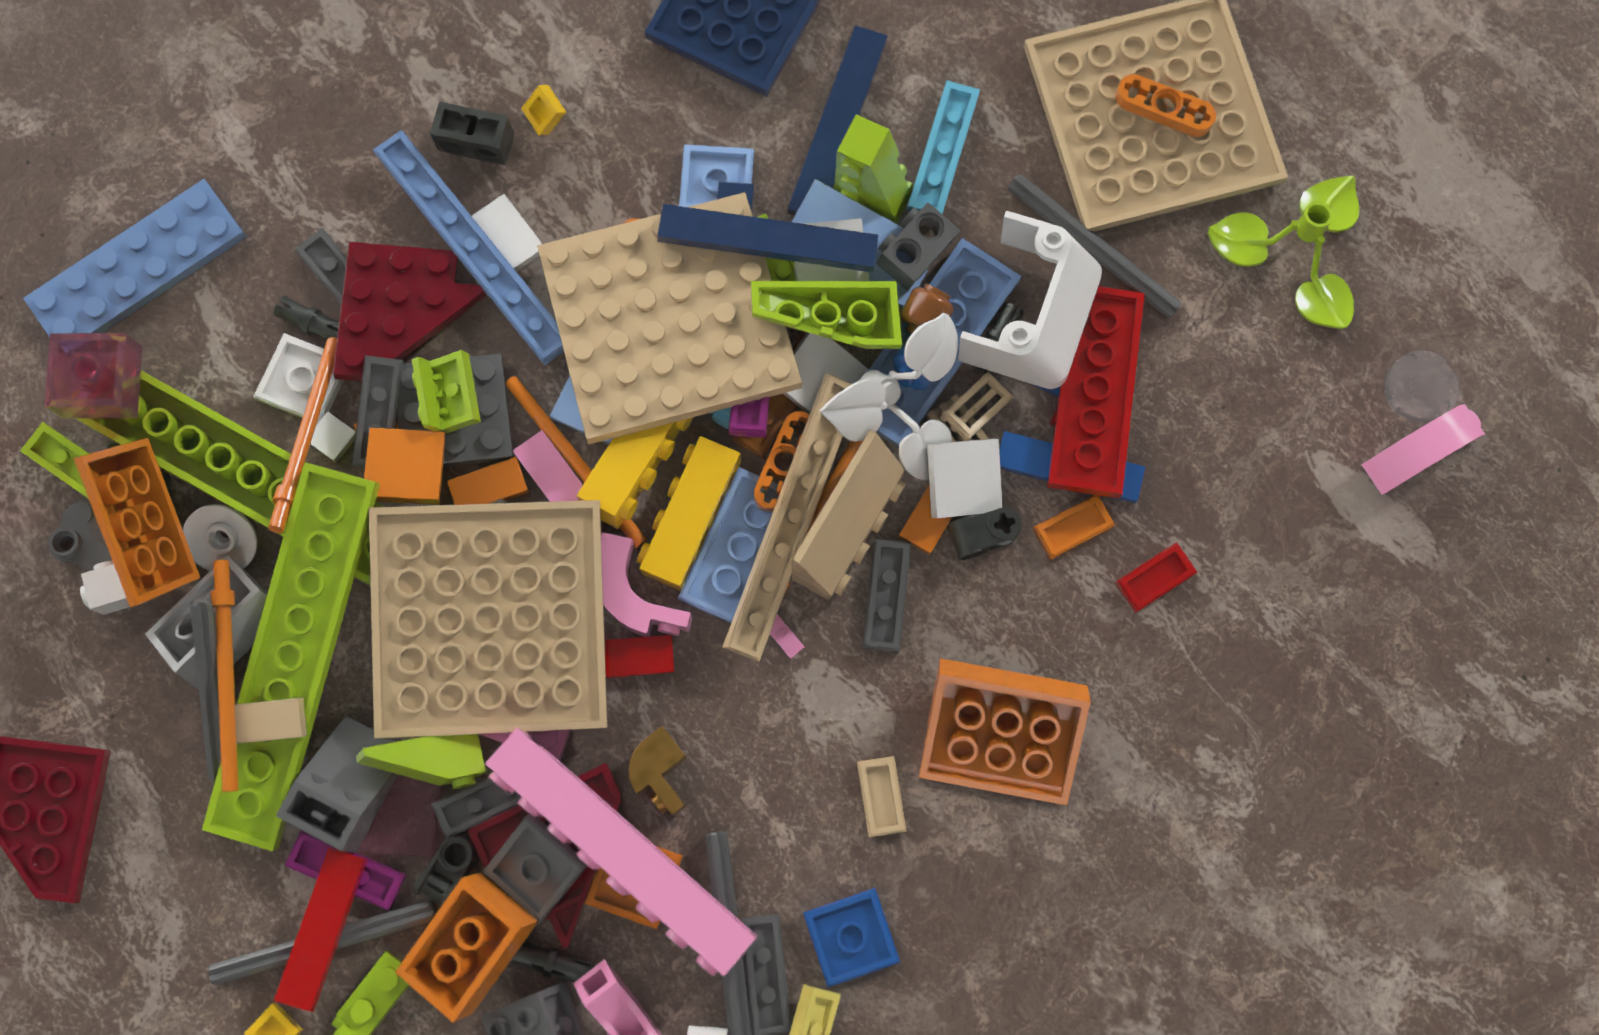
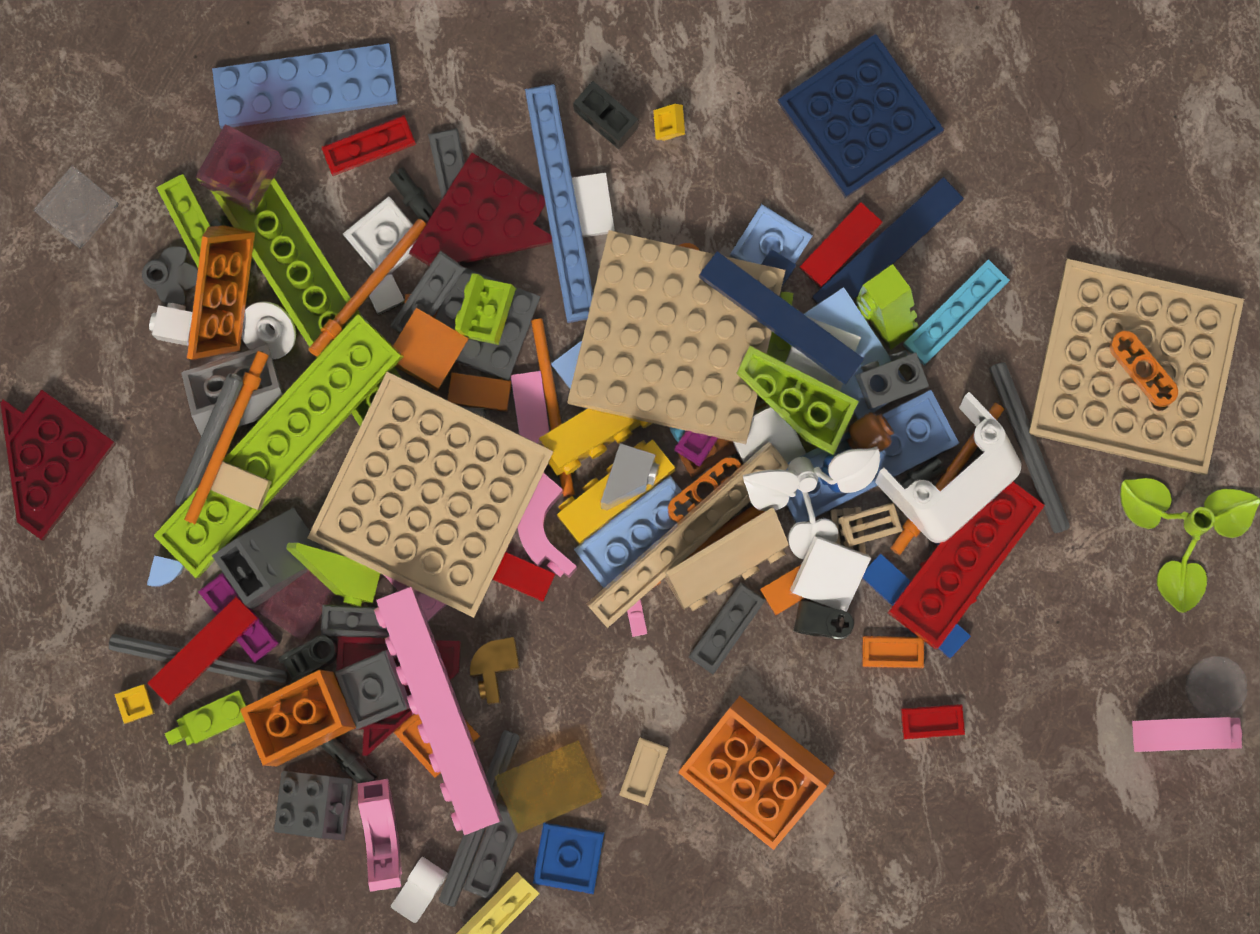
camera: 30 degrees right, 5 degrees up
(234, 863) = (164, 571): none -> light blue tile
(235, 294) = (368, 145): none -> red tile
(696, 481) = (629, 476): none -> light grey slope
(786, 871) = (547, 786): none -> clear yellow tile
(788, 144) = (841, 245): none -> red tile
(1019, 389) = (952, 471): none -> orange bar

